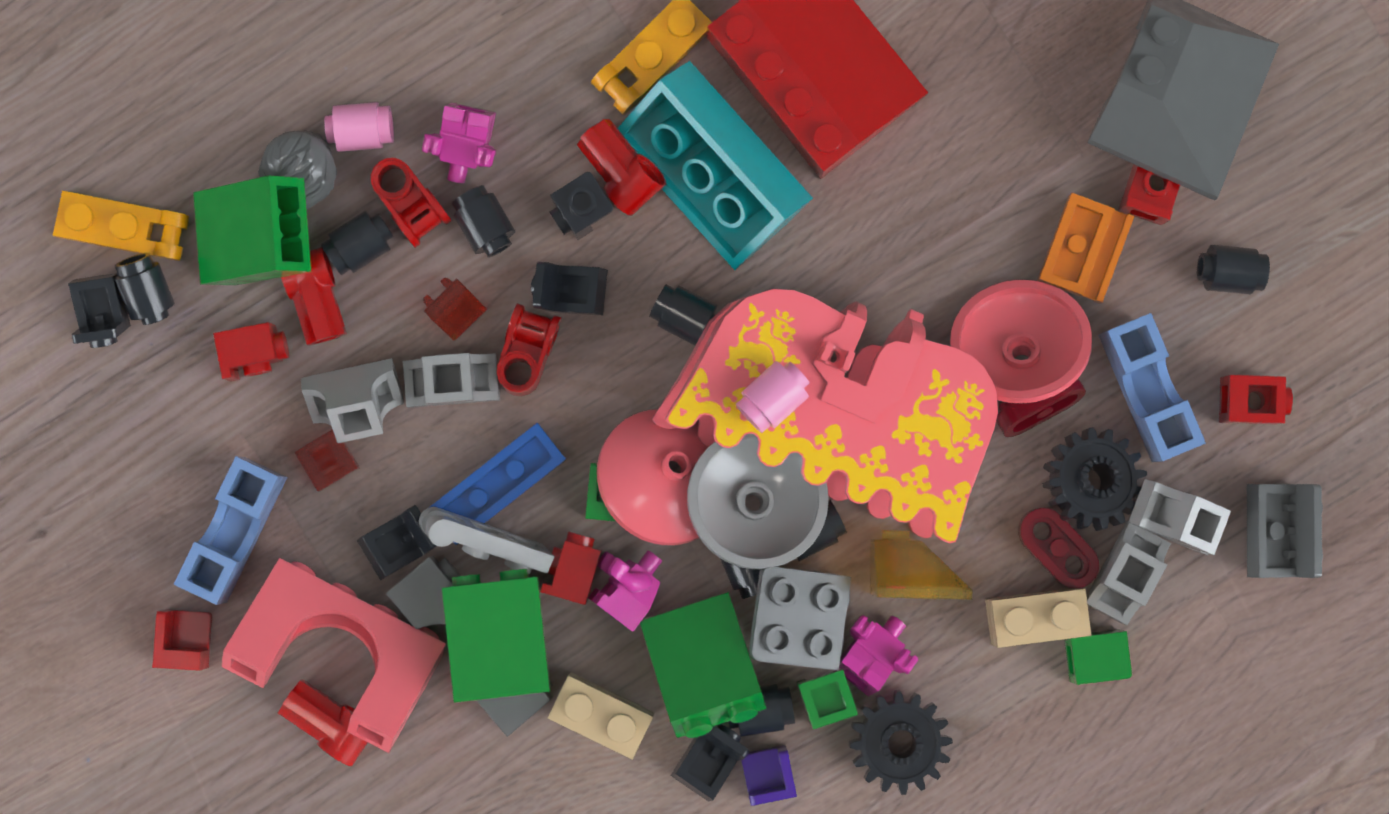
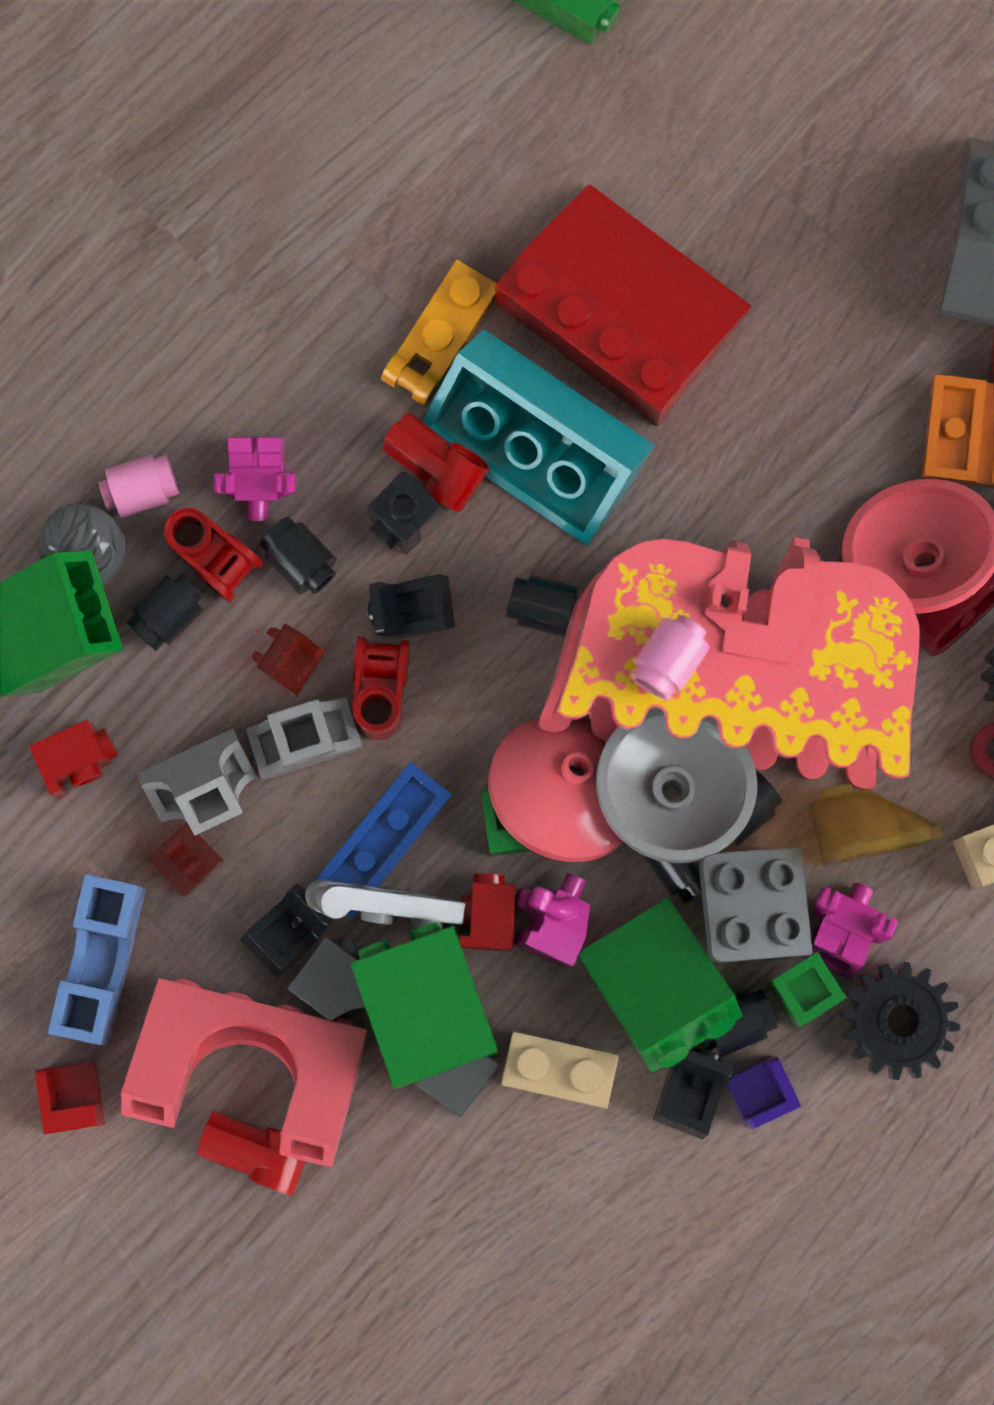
camera: 10 degrees left, 5 degrees down
(316, 300) = (134, 686): red piece -> none

